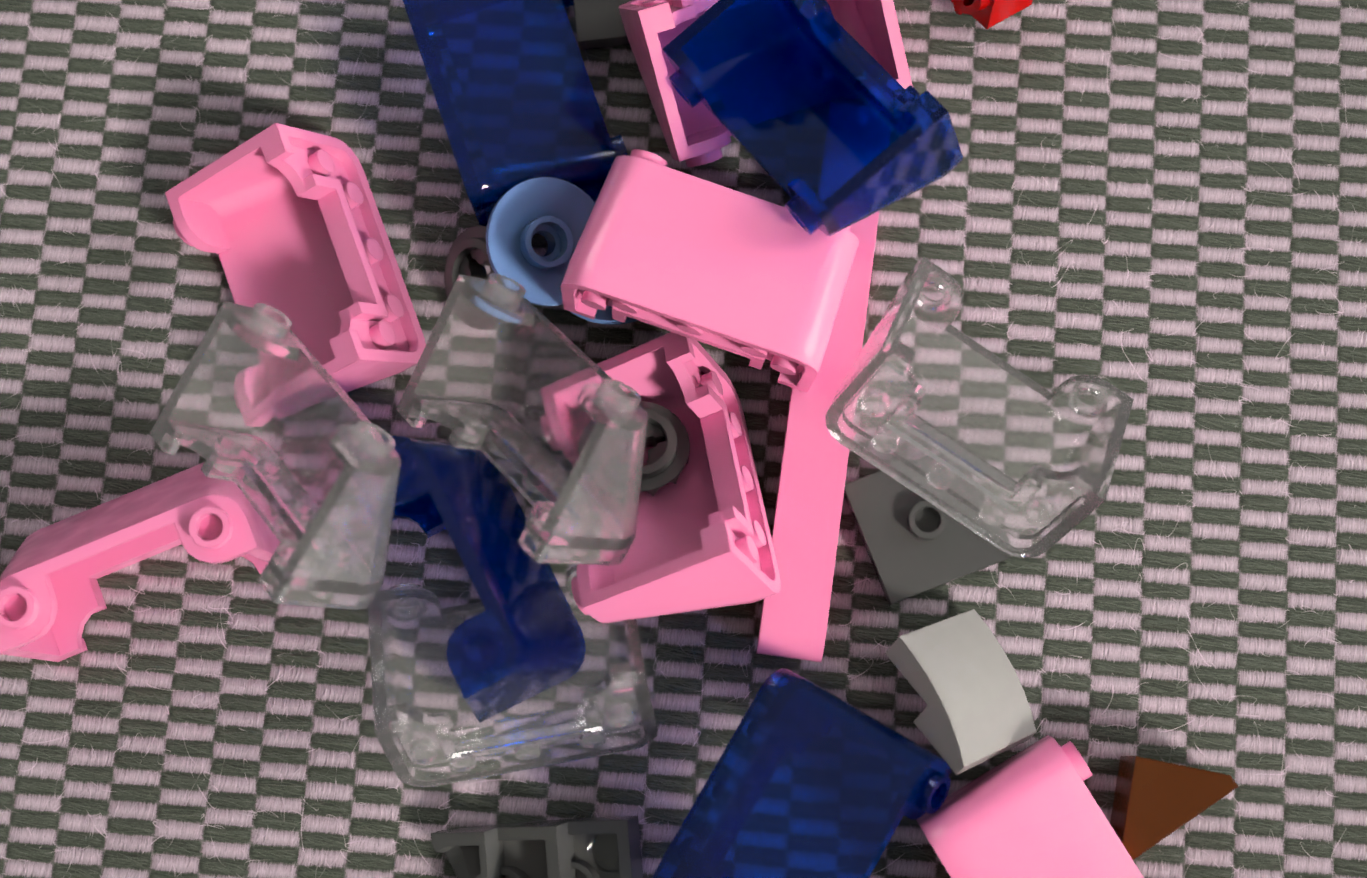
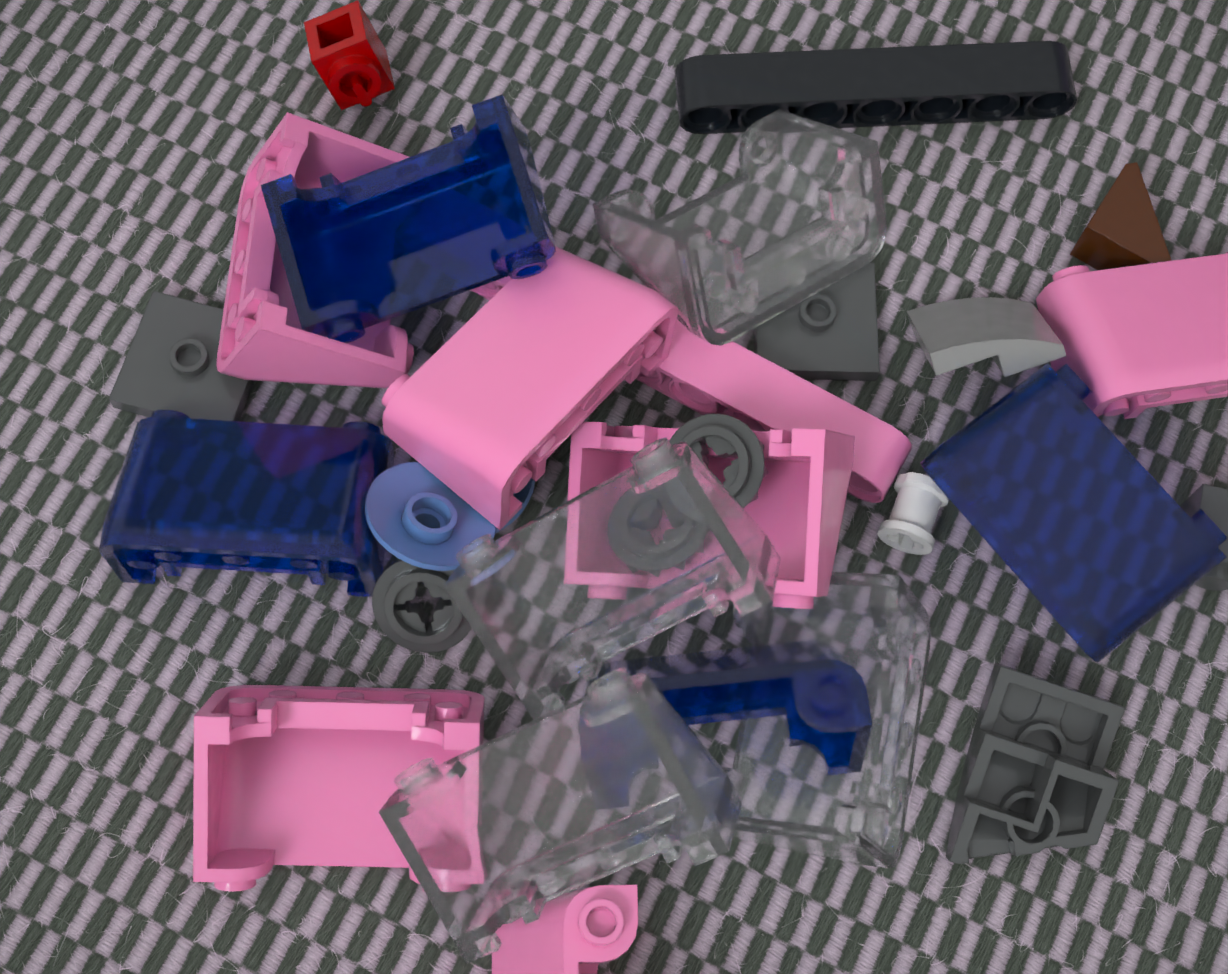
camera: 80 degrees left, 10 degrees down
(702, 447) = (728, 438): none -> dark grey gear
(743, 682) = (913, 514): none -> white bush
(1217, 494) = (877, 86): none -> black beam

